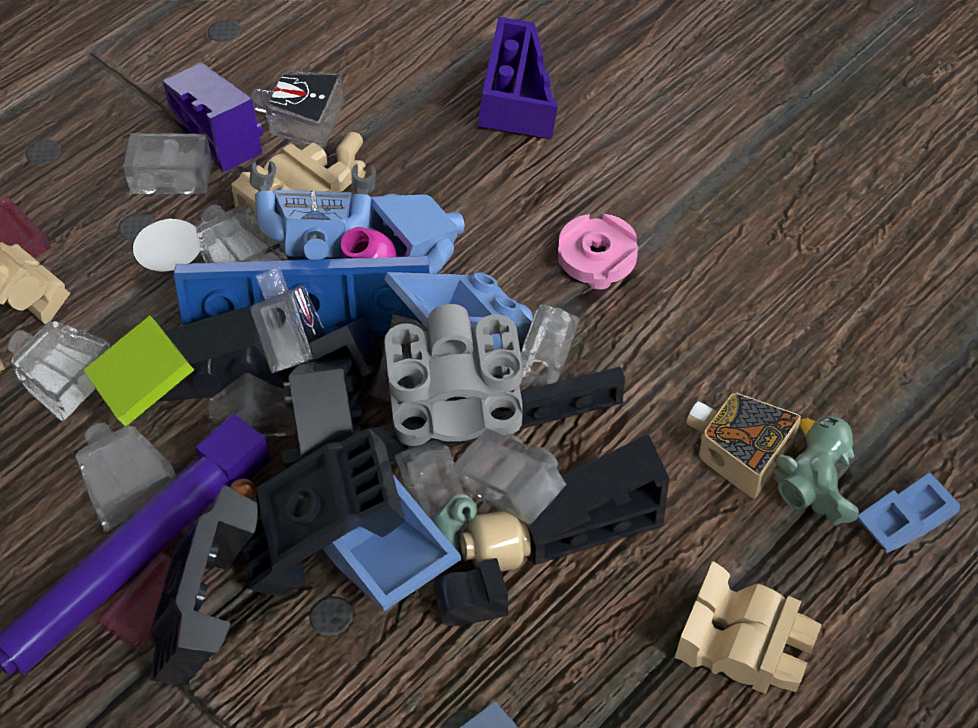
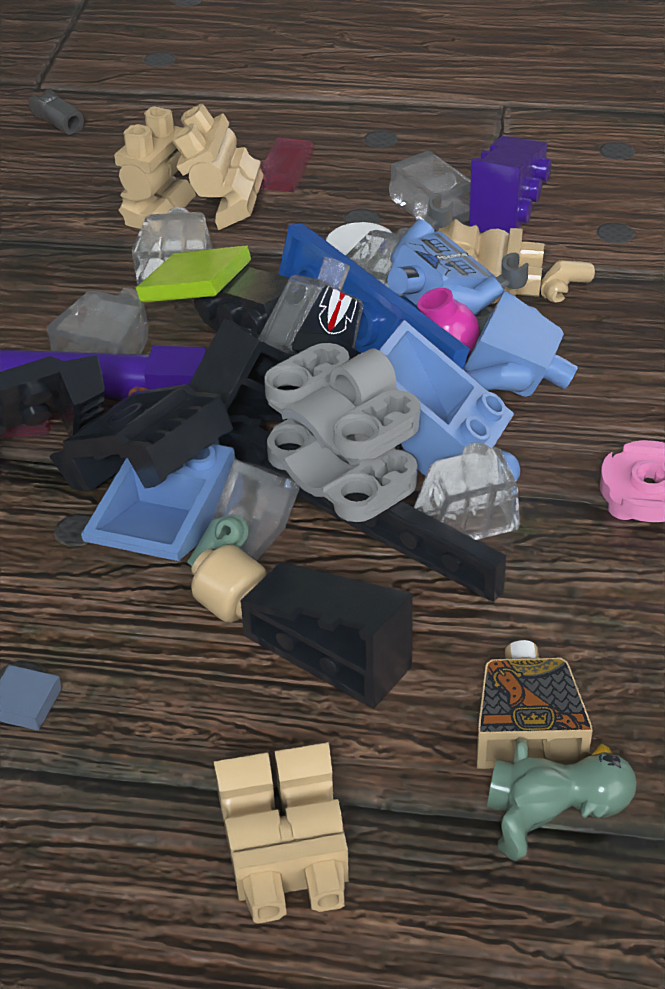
camera: 55 degrees right, 10 degrees down
(302, 106) = (584, 223): torso -> none
(472, 595) = (155, 594): black leg -> none
(510, 475) = (287, 534): clear brick -> none
(910, 514) = (586, 922): medium blue slope -> none

